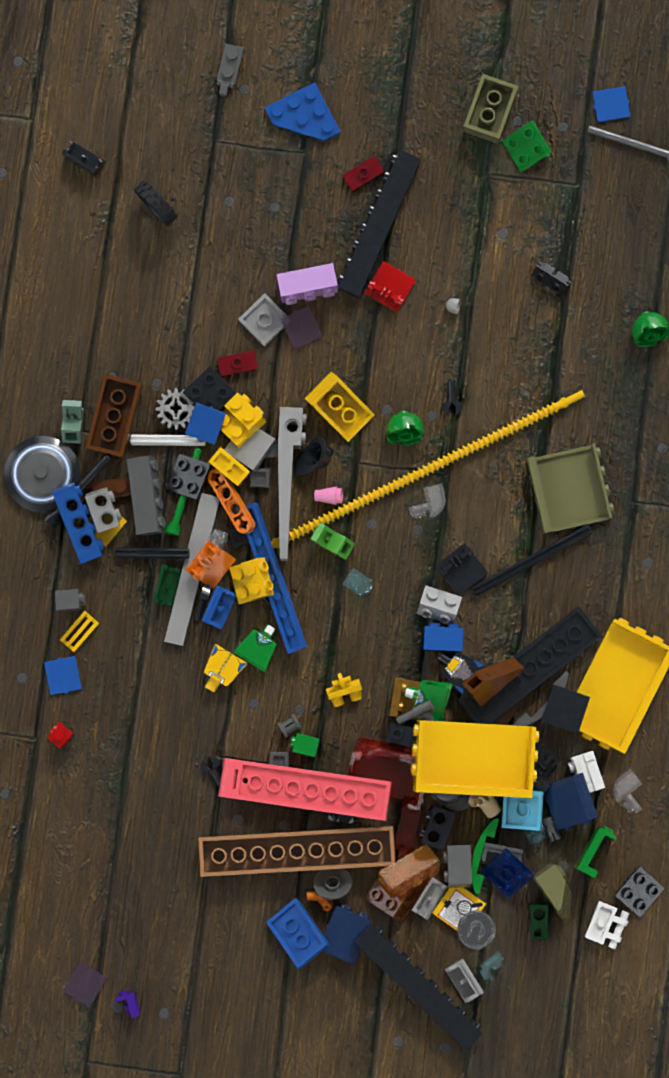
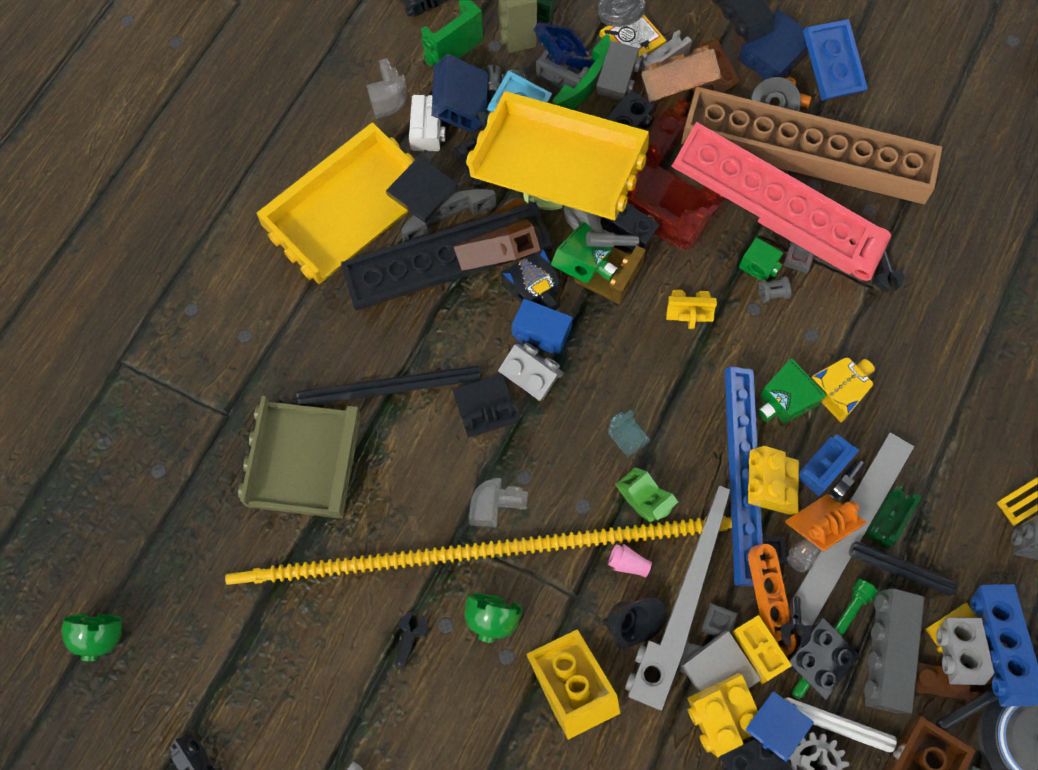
camera: 165 degrees left, 15 degrees down
(212, 489) = (795, 624): none -> black bar

